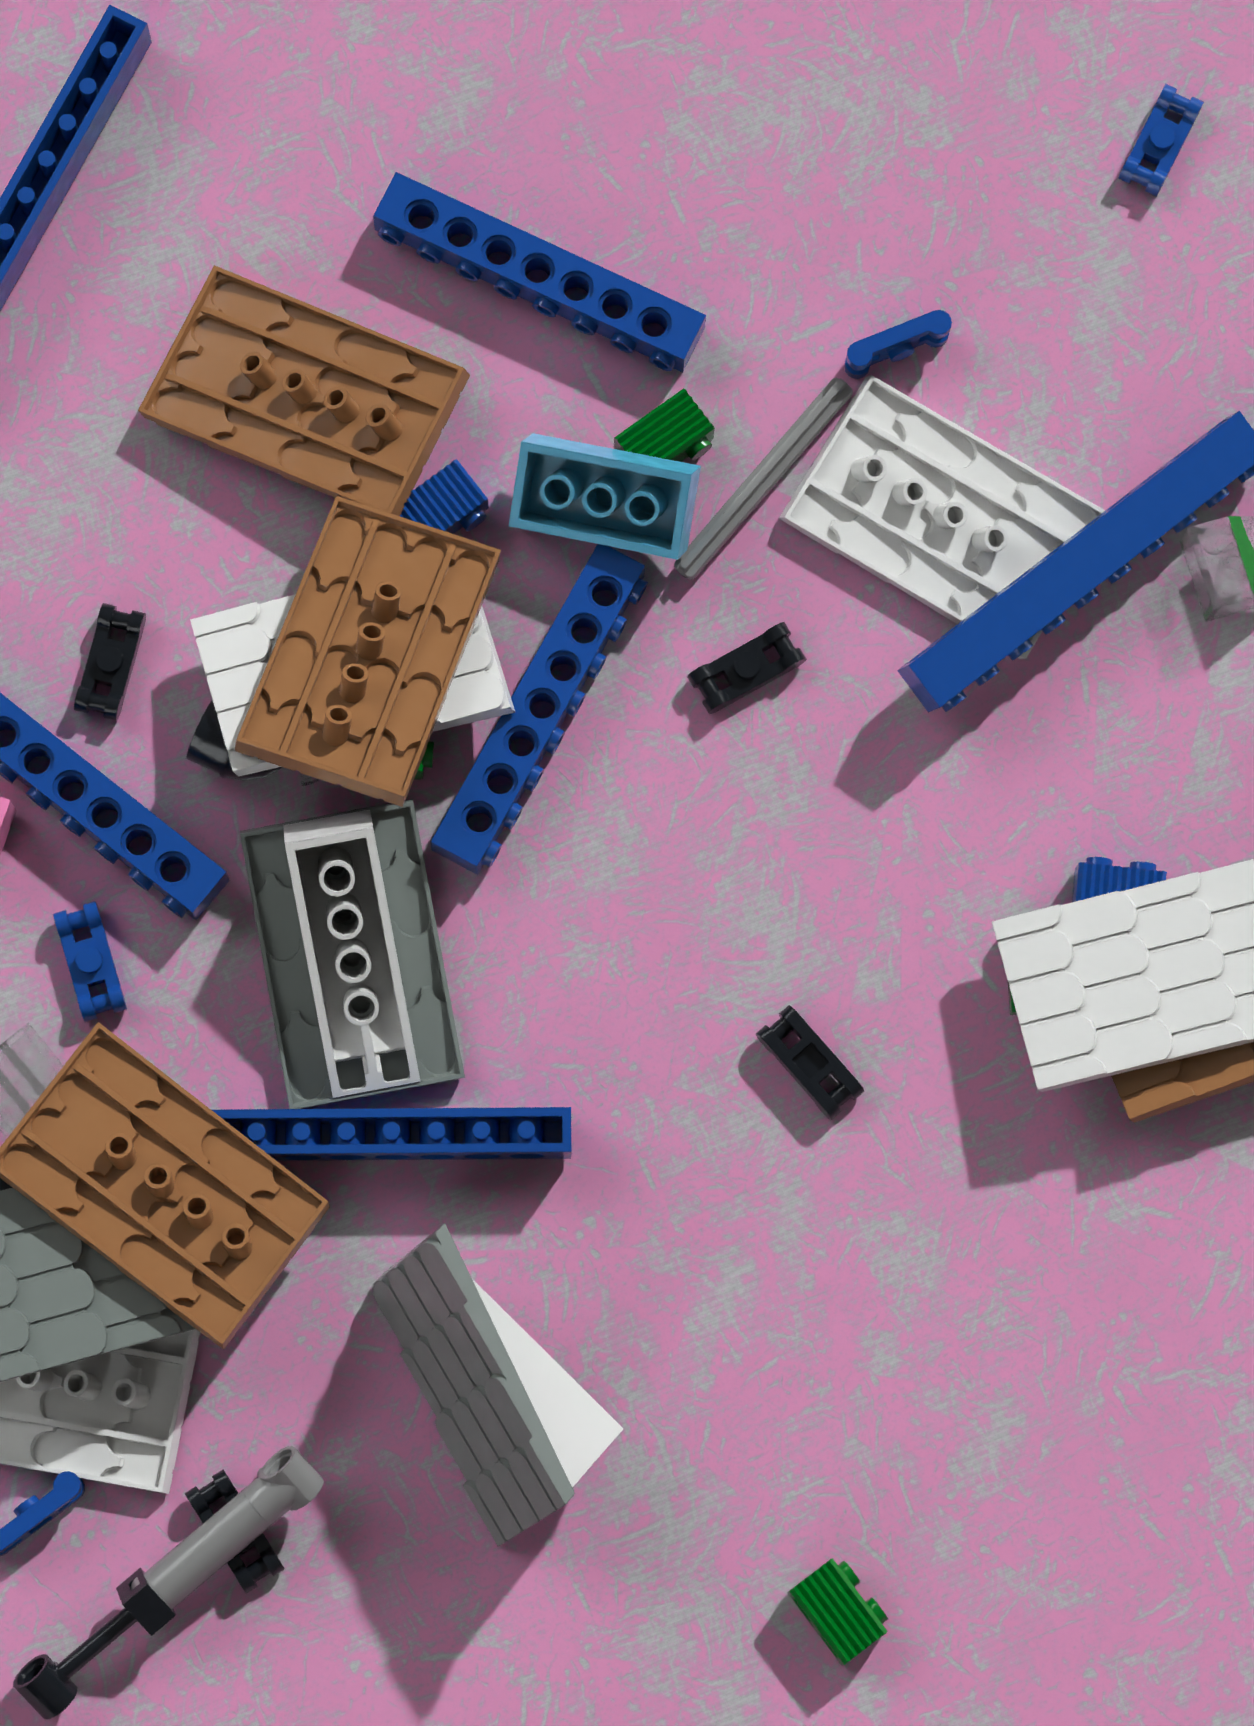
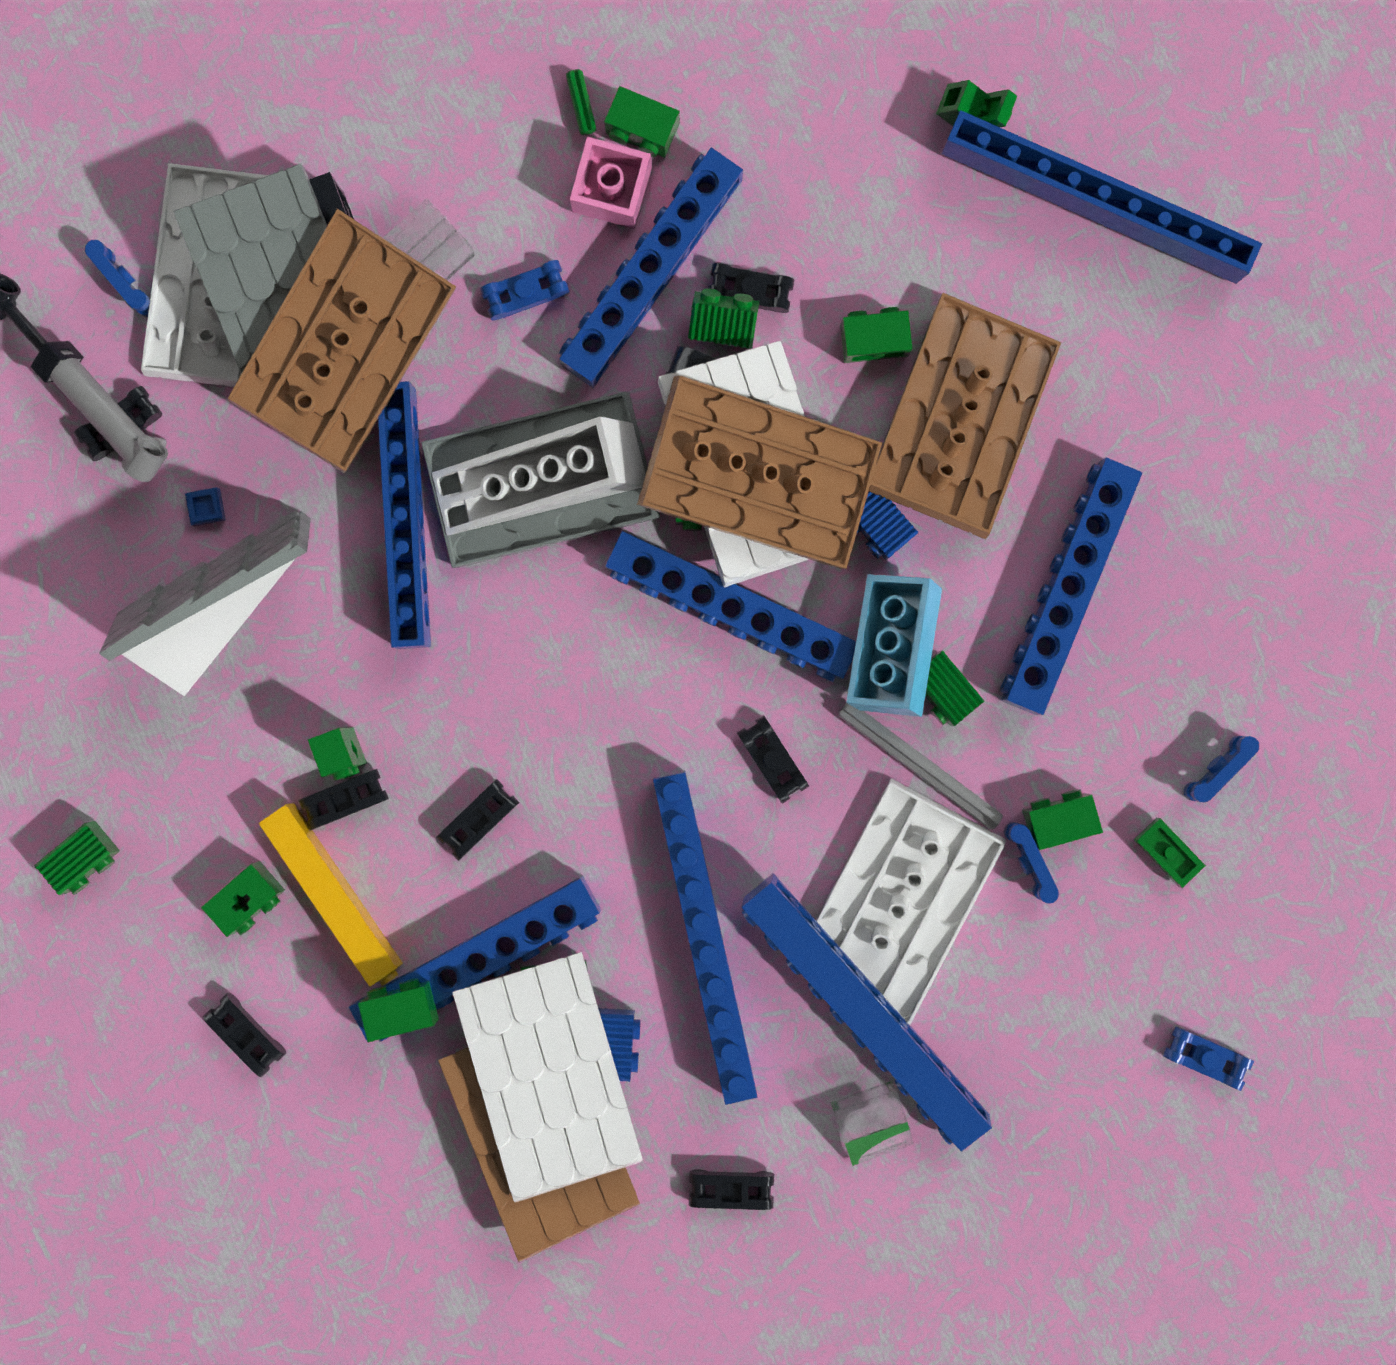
camera: 90 degrees right, 10 degrees up
(152, 695) = (723, 318): none -> green brick
(188, 500) = (876, 335): none -> green brick
(358, 1416) = (205, 506): none -> blue tile
(711, 1235) = (337, 753): none -> green brick
(774, 1242) = (343, 799): none -> black plate
(787, 98) = (1222, 769): none -> blue plate
(843, 300) = (1062, 820): none -> green brick
(880, 1373) = (226, 906): none -> green brick
(892, 171) = (1169, 852): none -> green plate
(903, 1261) = (331, 895): none -> yellow brick
(977, 766) = (705, 938): none -> blue brick
(1055, 1216) = (574, 894): none -> blue brick
(1059, 1165) = (398, 1010): none -> green brick
(1089, 1394) = (244, 1035): none -> black plate

